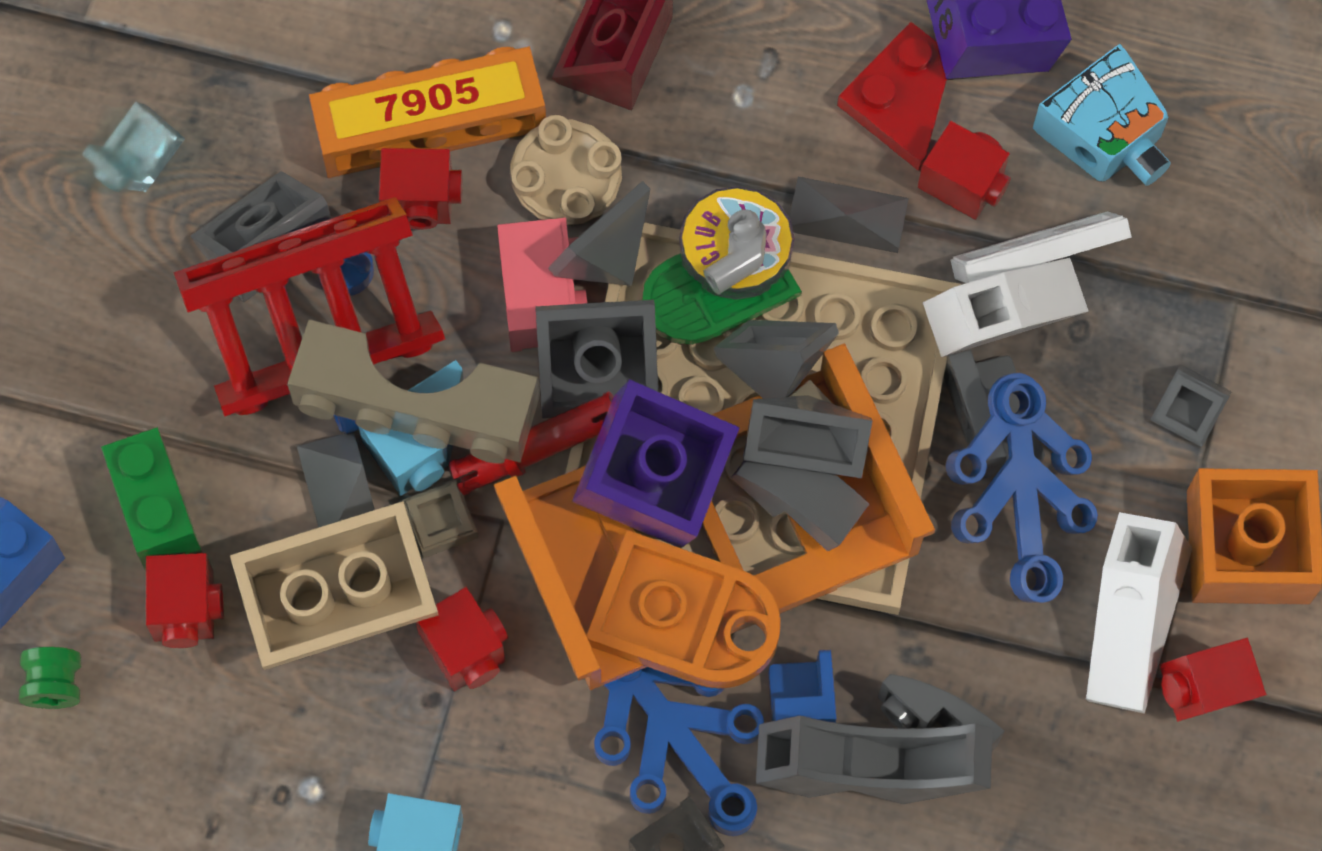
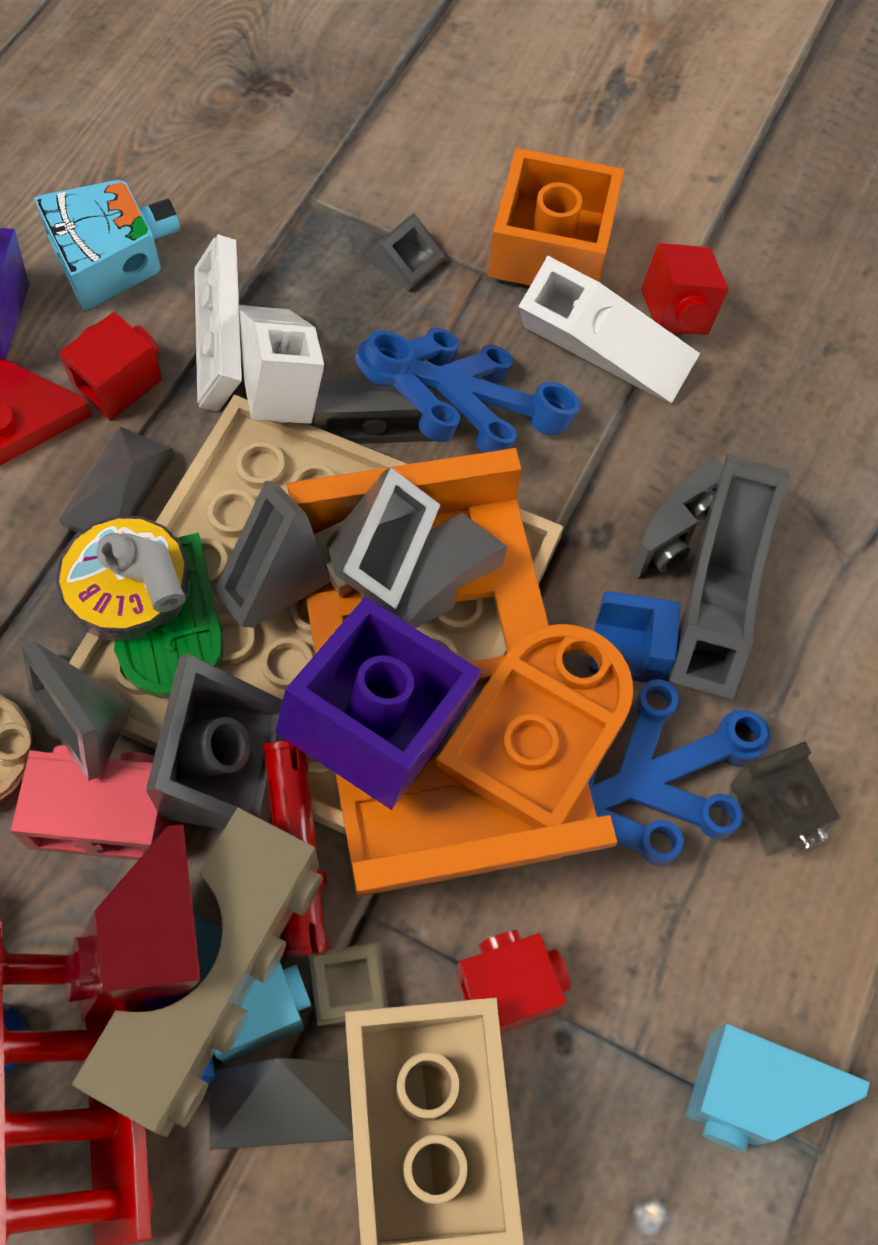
camera: 80 degrees left, 5 degrees down
(423, 332) = (140, 938): none -> dark red slope

